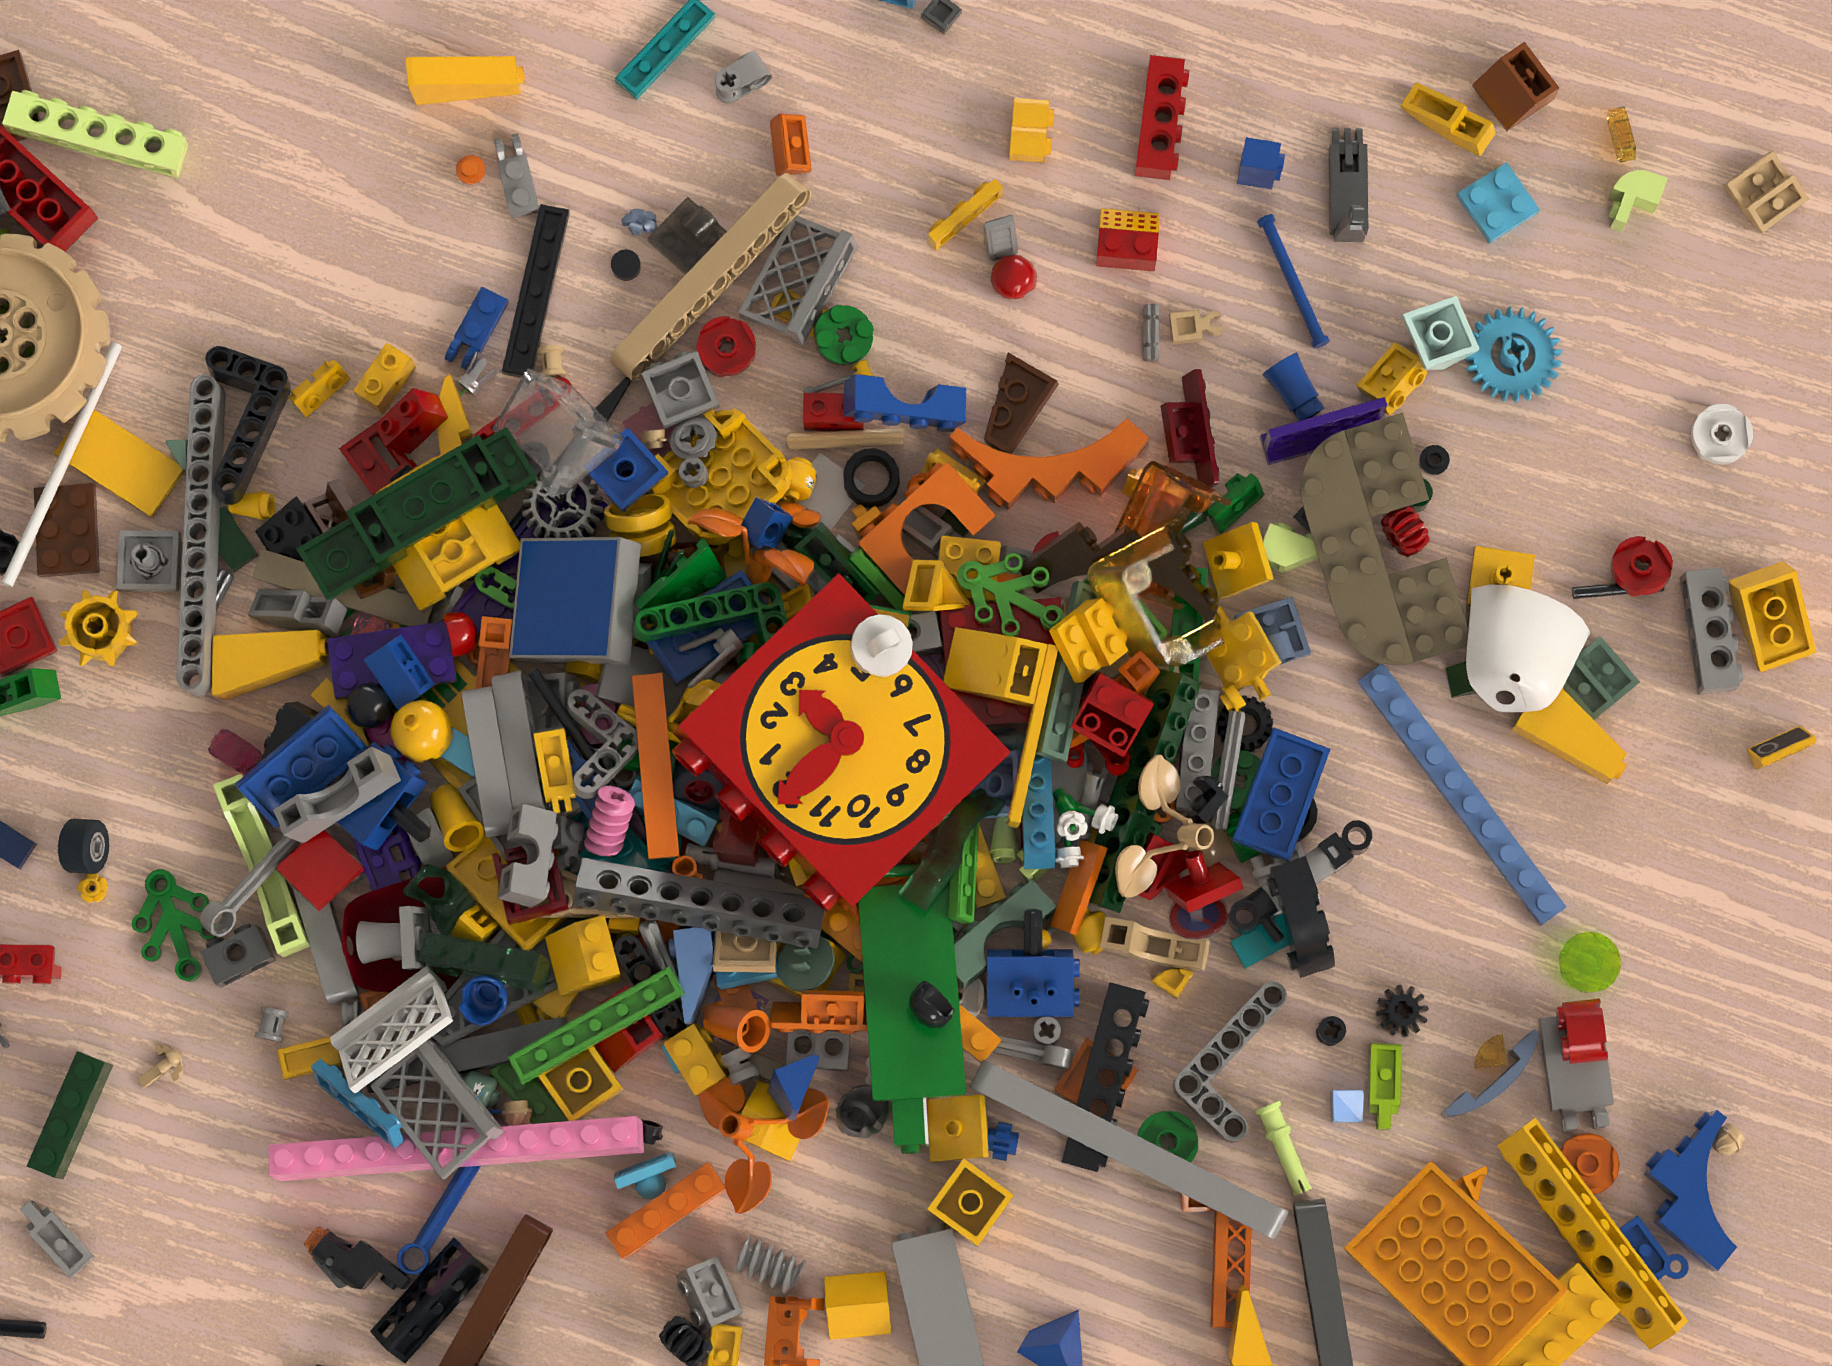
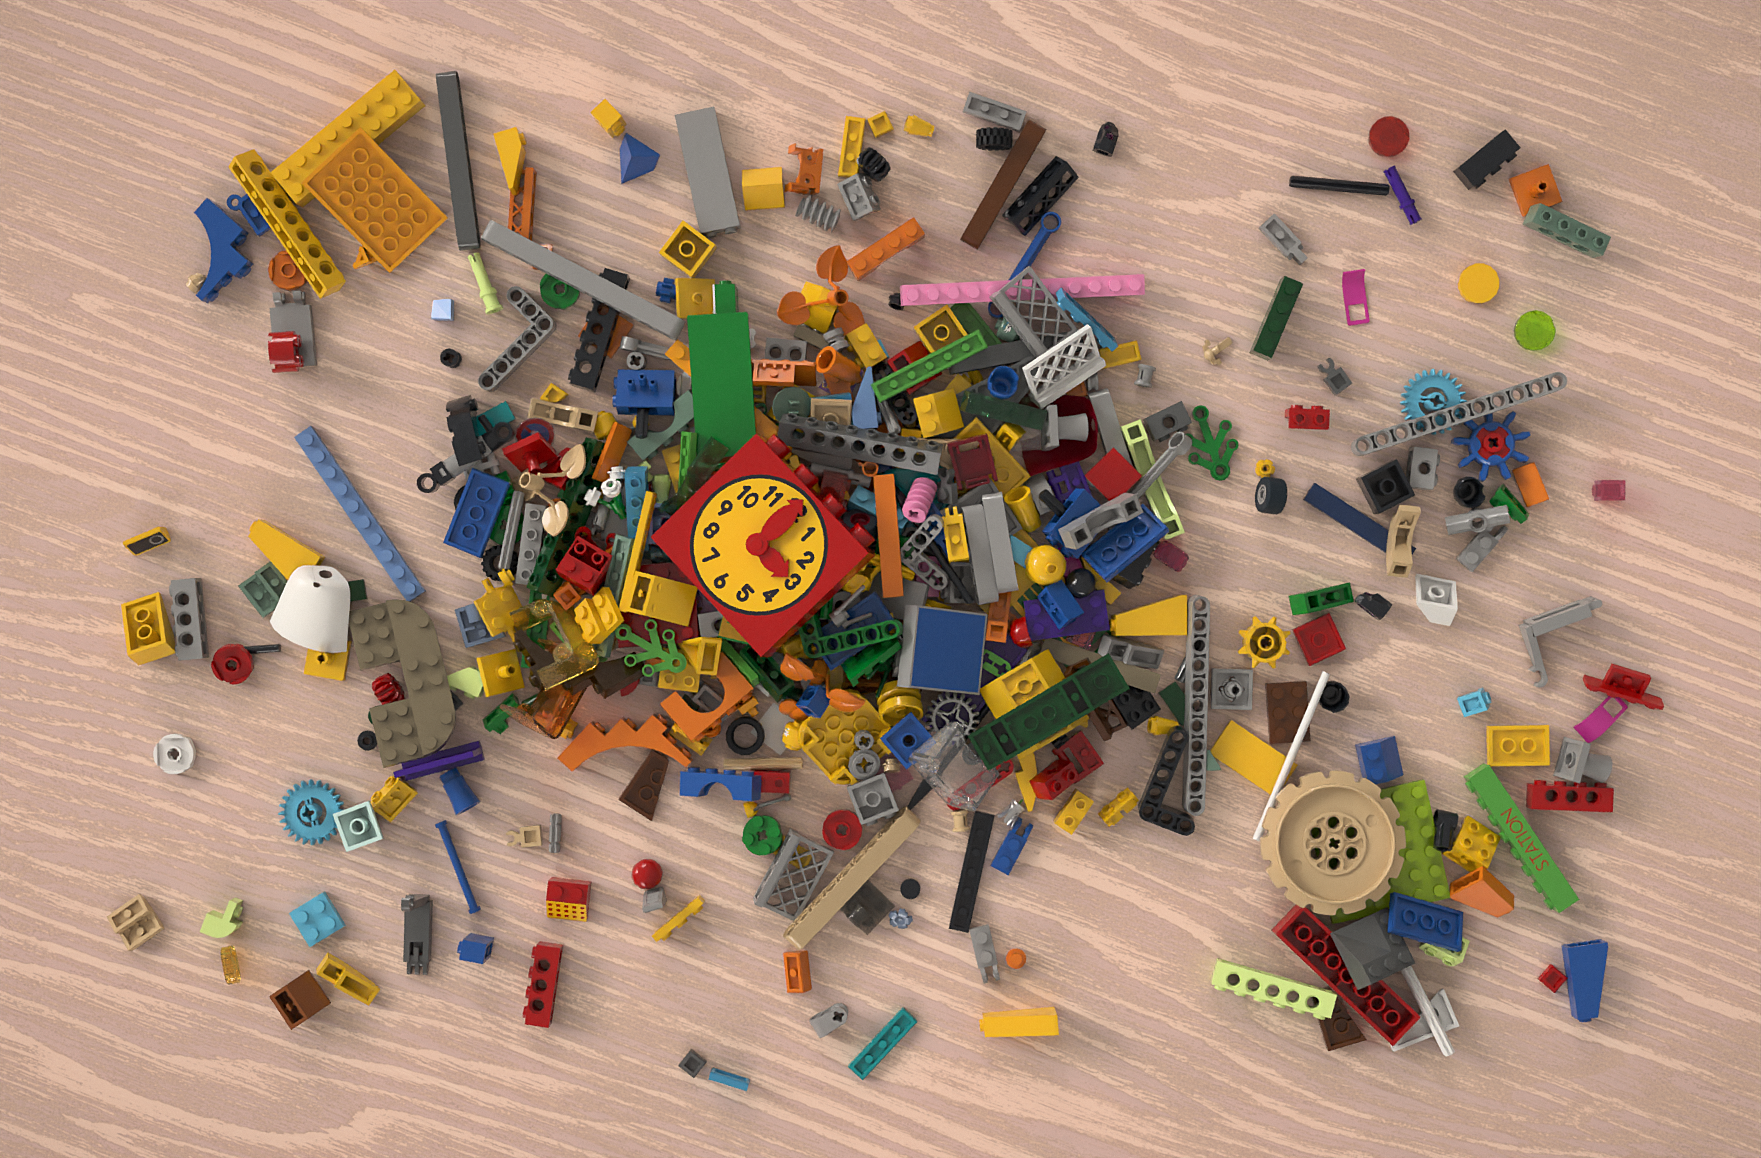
camera: 175 degrees right, 10 degrees up
(352, 1266) = (1089, 217): black plate -> none
(451, 906) = (1026, 449): clear green piece -> none
(517, 1113) = (982, 312): tan plate -> none
(535, 832) = (967, 491): light grey arch -> none
(647, 1175) = (898, 273): medium azure tile -> none
(791, 1084) = (801, 323): blue slope -> none
(859, 1114) = (759, 309): flat silver hair -> none
(881, 645) = (733, 606): white tile -> none
(930, 1006) = (708, 371): black hair -> none
(1029, 130) = (633, 977): yellow brick -> none
(1189, 429) = (530, 763): dark red bracket -> none
(1209, 802) = (523, 505): black bracket -> none
(1384, 1082) = (417, 324): lime hinge -> none
(1407, 1002) = (400, 378): black gear -> none
(1491, 1053) = (347, 343): clear yellow tile -> none
(1521, 1053) = (326, 341): sand blue slope -> none
(1589, 962) = (281, 401): clear neon green tile -> none

